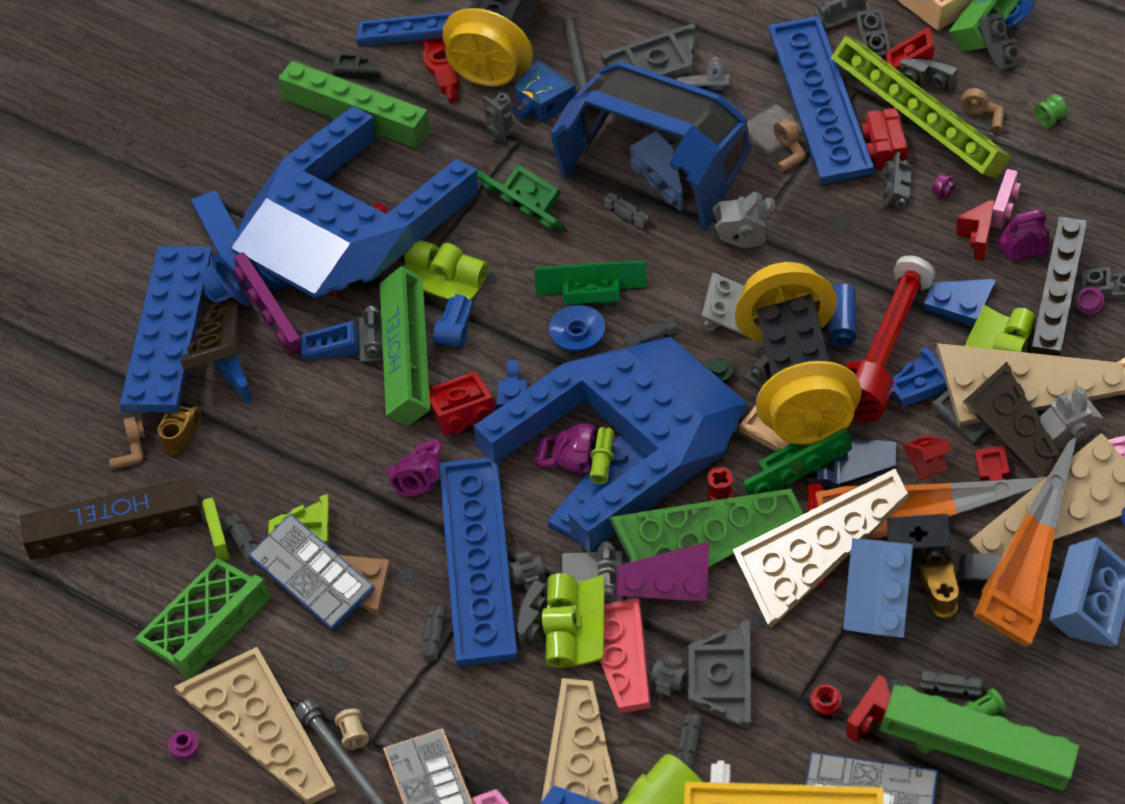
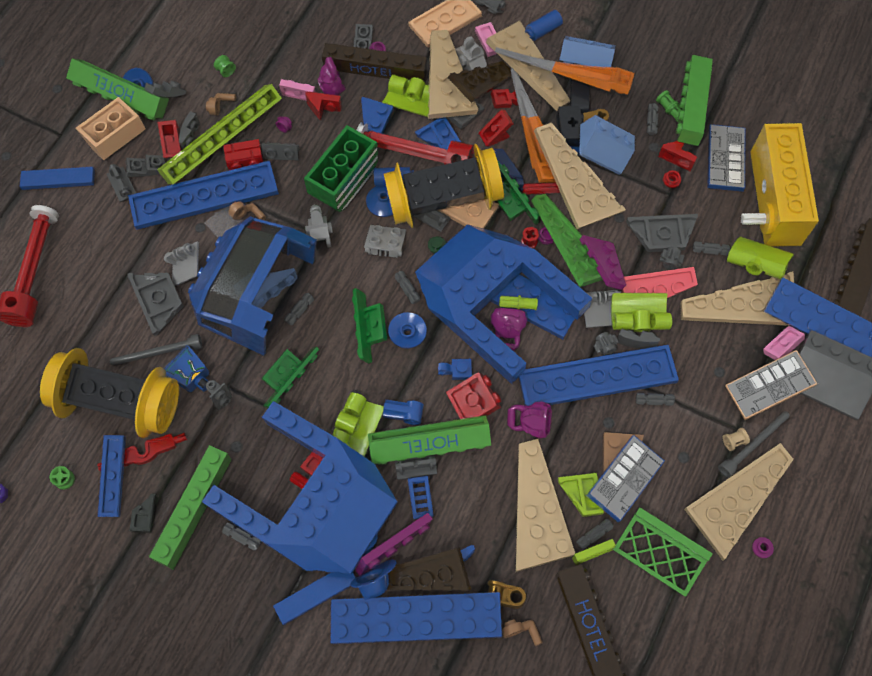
camera: 100 degrees left, 15 degrees up
(272, 476) = (540, 522): none -> tan wing
(836, 235) = (342, 169): none -> green brick

